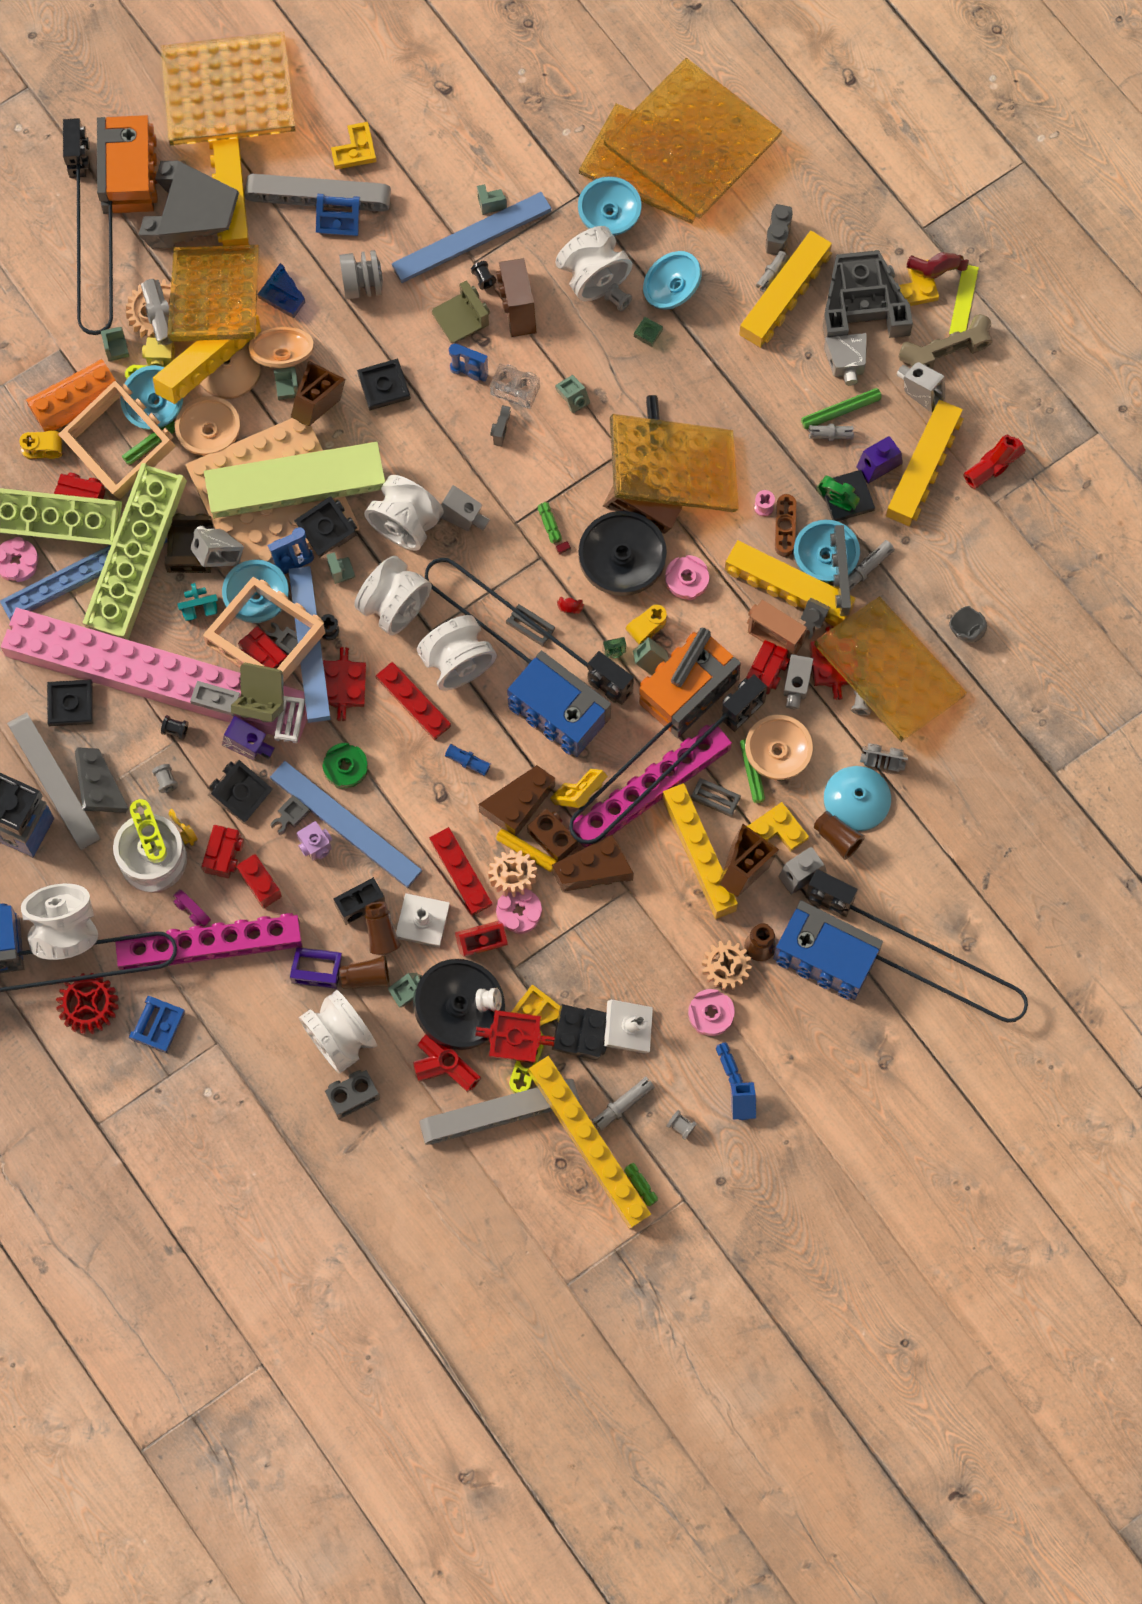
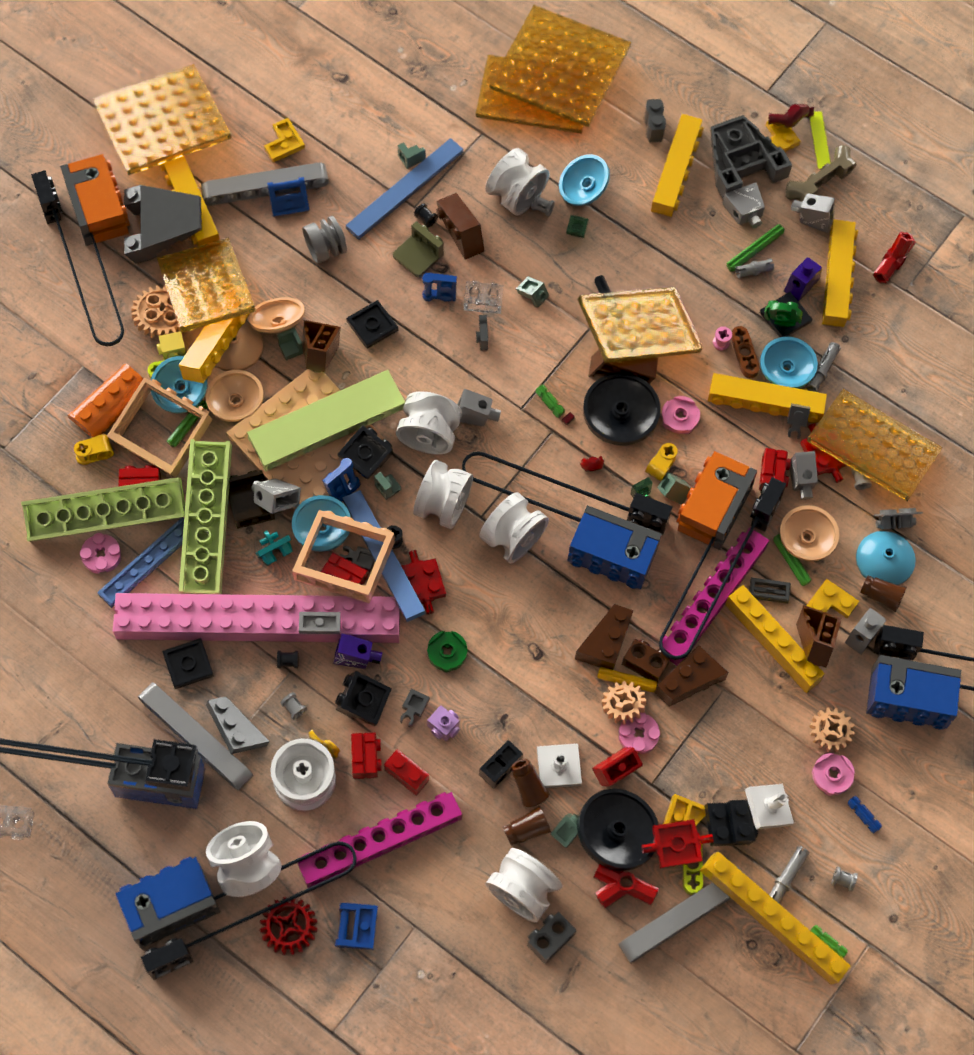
camera: 20 degrees left, 5 degrees down
(115, 343) = (131, 349): sand green panel -> none
(147, 847) = (298, 763): neon yellow beam -> none
(156, 309) = (162, 311): light grey piece -> none
(197, 915) = (360, 816): magenta plate -> none
(260, 693) = (359, 606): olive bracket -> none
(282, 292) = (261, 271): clear blue wing -> none
(287, 737) = (392, 639): white tile -> none
(316, 978) = (481, 844): dark purple tile -> none
(346, 824) = (465, 701): medium blue tile -> none
(413, 700) = (486, 579): red plate -> none
(460, 871) = (577, 713): red plate -> none
(467, 760) = (551, 616): blue pin -> none
(488, 999) = (643, 818): white wheel -> none
(541, 641) = (546, 491): dark grey tile -> none
(577, 794) = (659, 617): yellow plate -> none
(610, 195) = (511, 127): medium azure dish -> none
(691, 657) = (715, 477): dark grey axle -> none
(743, 1101) = (890, 842): blue brick -> none
(759, 949) = (854, 701): reddish brown plant -> none
(772, 271) = (661, 154): light grey pin -> none
(776, 627) = (772, 434): nougat window -> none
(840, 579) = (811, 379): dark grey plate -> none
(968, 624) = (924, 391): dark grey hair -> none

